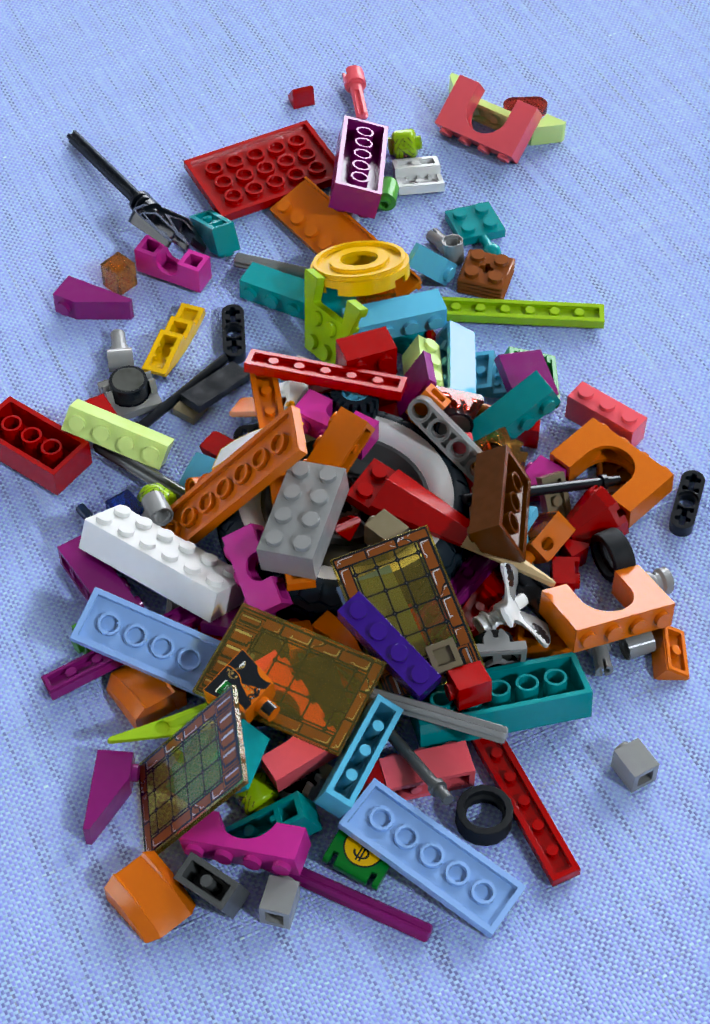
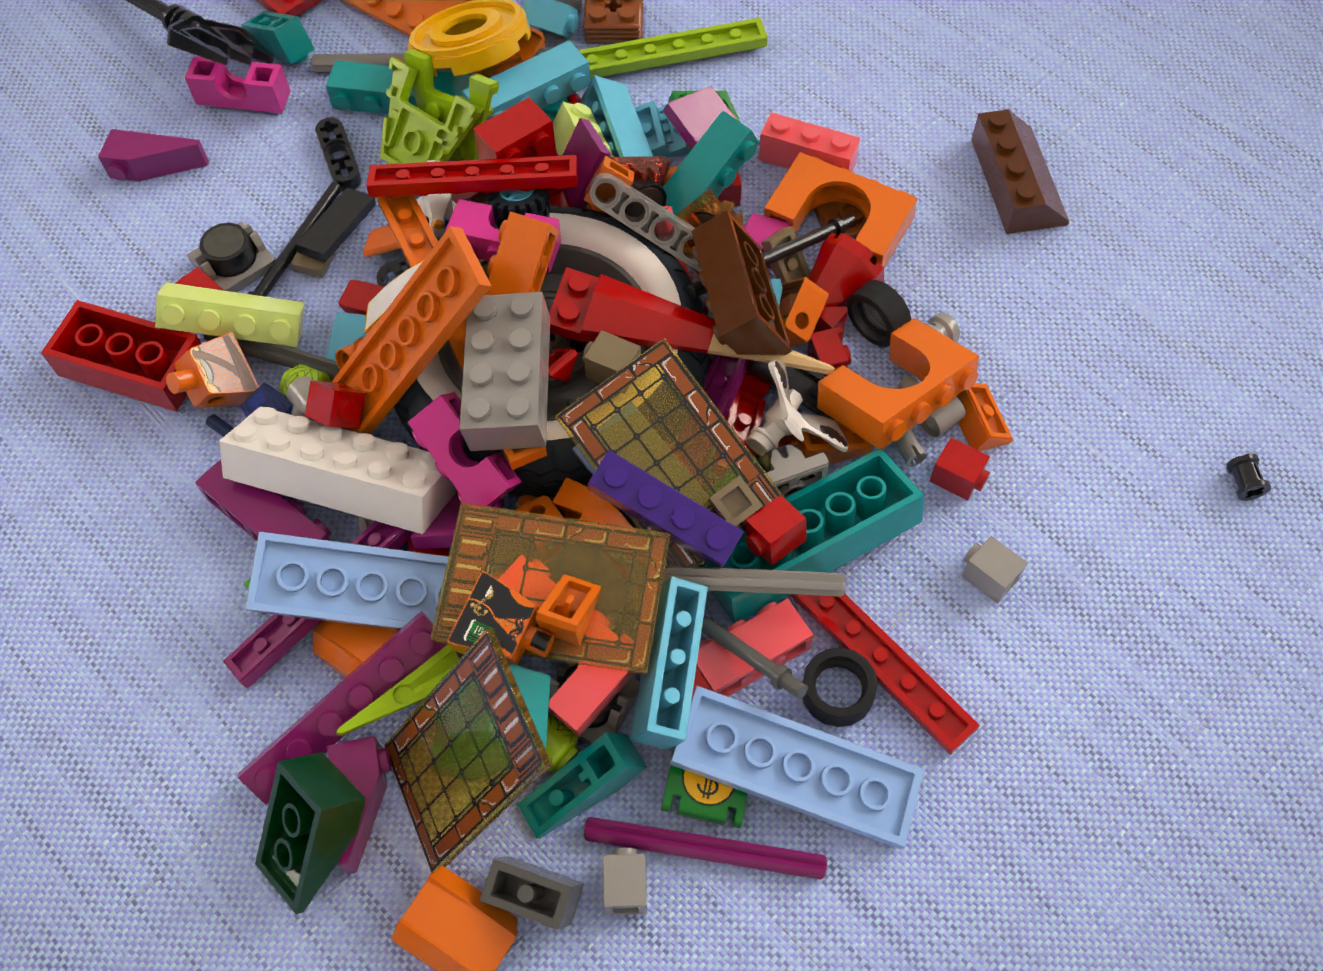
camera: 15 degrees left, 10 degrees up
(68, 796) = (307, 826): none -> dark green slope
(87, 740) = (368, 682): none -> magenta plate
(93, 473) = (213, 374): none -> torso
(119, 273) = (174, 112): clear orange brick -> none
(119, 353) = (203, 210): light grey pin -> none
(174, 340) = (267, 179): yellow slope -> none
(174, 515) = (334, 404): none -> red brick
(277, 850) = (606, 818): dark pink arch -> none
(295, 333) = (414, 135): none -> lime wing
(295, 694) = (568, 609): none -> orange slope
(636, 686) = (960, 469): none -> red brick
(689, 512) = (929, 239): black beam -> none

